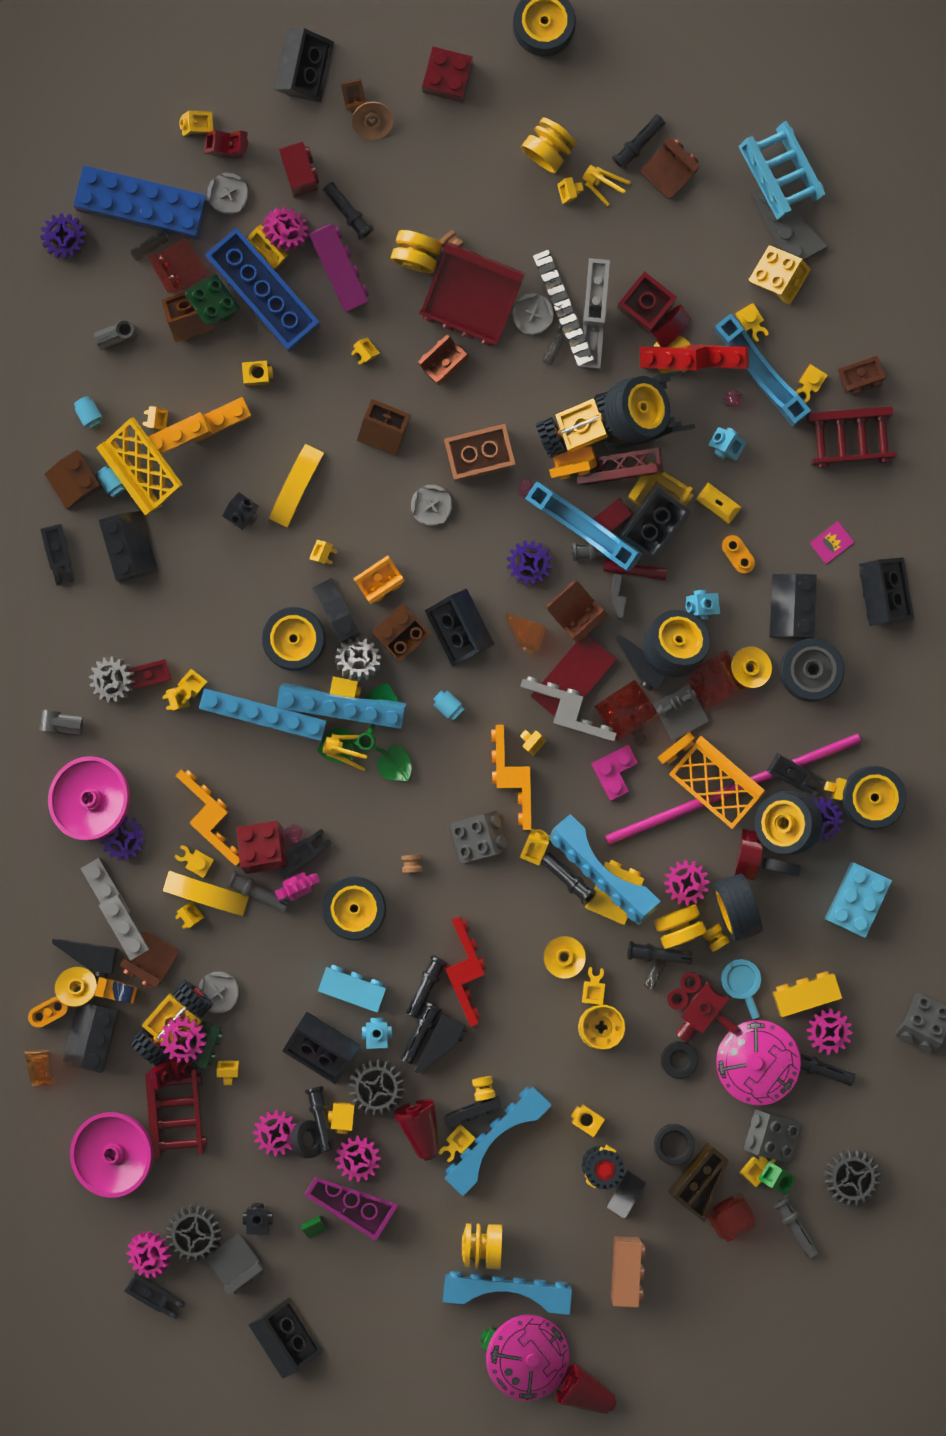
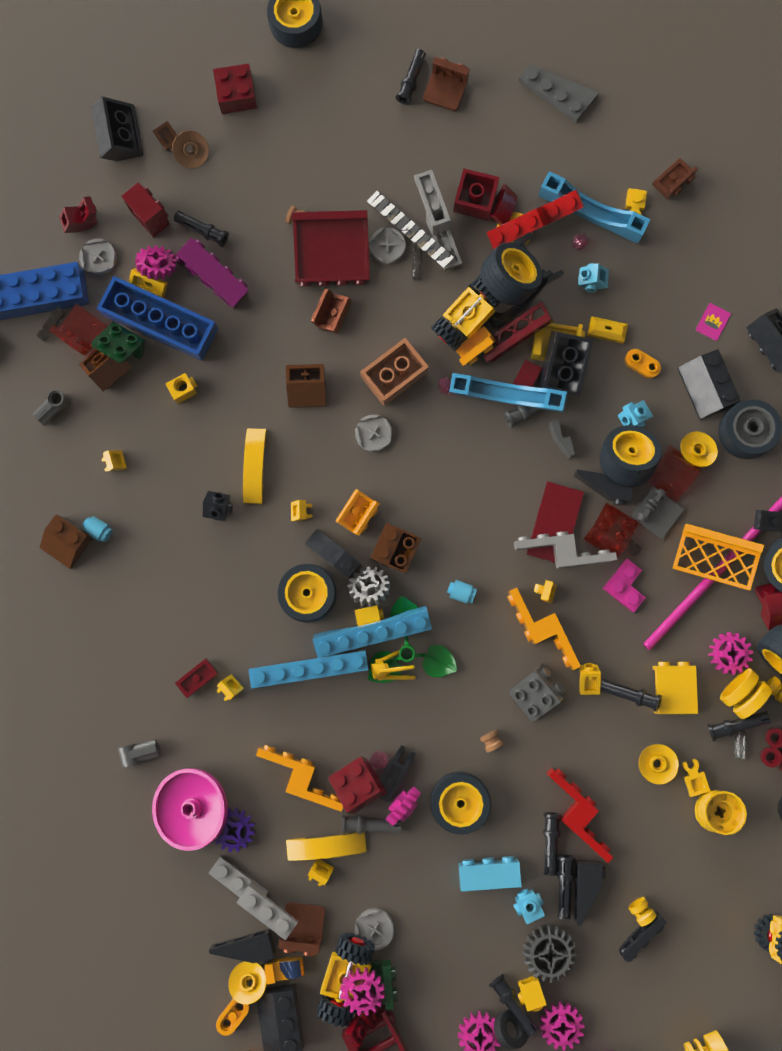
camera: 15 degrees left, 5 degrees down
(57, 551) = (76, 608): black hinge -> none
(88, 412) = (54, 480): medium azure brick -> none
(117, 674) = (169, 692): light grey gear -> none
(128, 545) = (134, 576): black slope -> none
(130, 475) = (110, 515): yellow fence -> none
(190, 685) = (236, 671): yellow plate -> none
(196, 122) = (47, 211): yellow bracket -> none
(197, 862) = (307, 822): yellow plate -> none
(200, 426) = (150, 453): light orange bracket -> none
(227, 1070) = (413, 997): yellow tile -> none
(321, 1048) = (486, 939): black slope -> none
(365, 349) = (264, 330): yellow tile -> none
(416, 251) = (270, 233): yellow wheel -> none
(420, 1127) = (603, 972): dark red cone -> none
(459, 627) = (442, 522): black slope -> none
(459, 1140) = (642, 969): yellow plate -> none
(521, 550) = (481, 448): dark purple gear -> none
(527, 633) = (499, 502): clear orange slope -> none
(528, 1108) = (688, 913): dark azure arch -> none
(551, 141) = (341, 105): yellow wheel -> none
(569, 190) = (372, 136): yellow tile -> none
(576, 611) = (533, 466): copper bracket -> none
(593, 1127) = (752, 903): yellow brick -> none
(596, 175) = (388, 117): yellow plant -> none
(633, 899) = (697, 688): dark azure arch -> none
(647, 571) = (576, 409): dark red piece -> none
(683, 743) = (672, 536): light orange plate -> none
(750, 319) = (568, 173): yellow plate -> none
(771, 186) = (526, 57): medium azure fence -> none
(780, 273) = (571, 127): yellow bracket -> none
(860, 417) = (689, 211): dark red fence -> none

